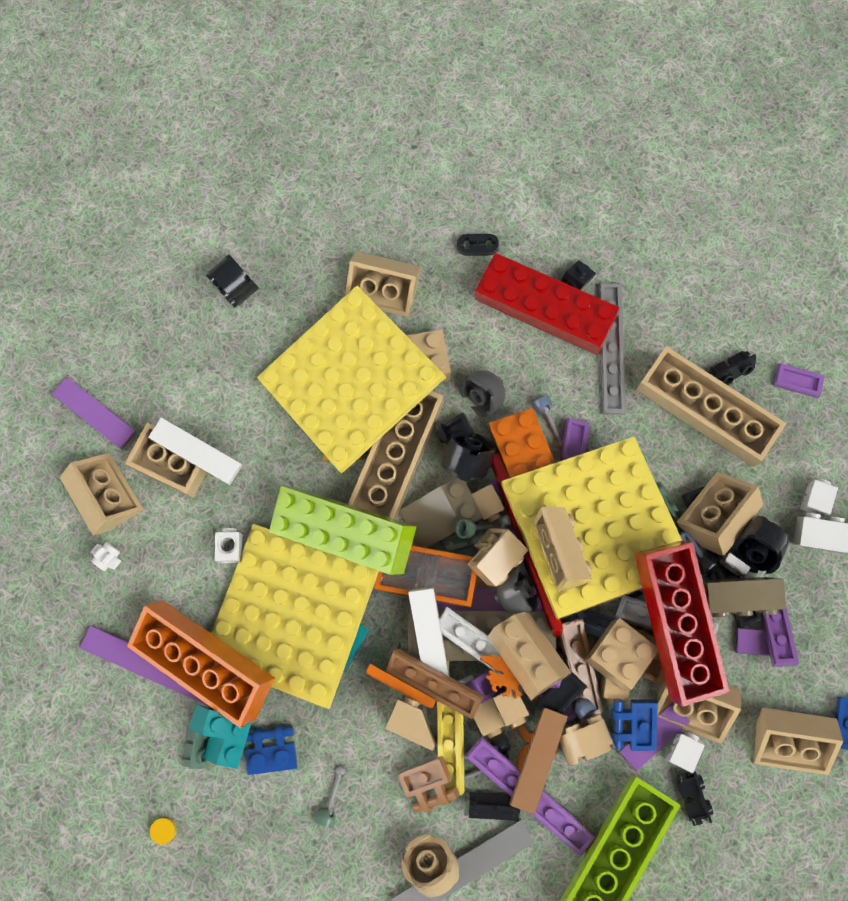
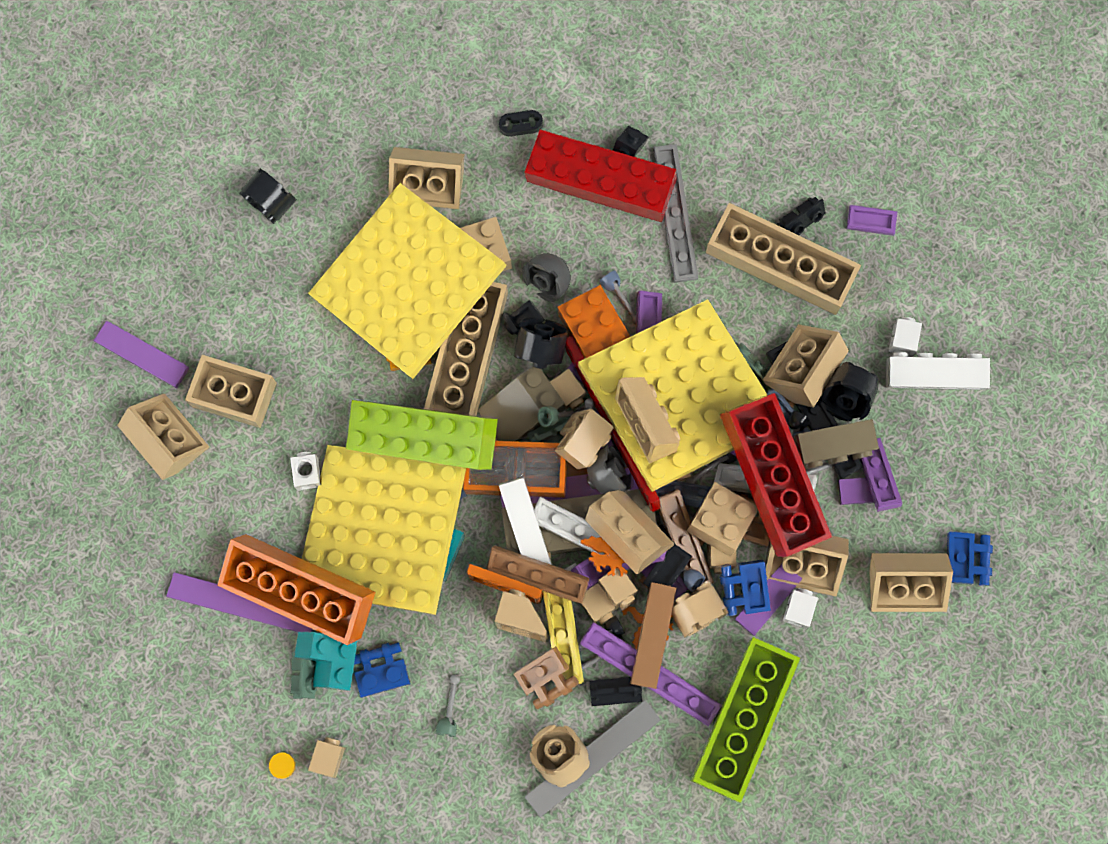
camera: 10 degrees left, 0 degrees up
(105, 556) = (178, 499): white gear -> none
(195, 451) = (257, 377): white tile -> none
(206, 831) = (327, 757): none -> tan brick
(699, 807) = (813, 642): black hinge -> none
(734, 565) = (826, 415): white tile -> none

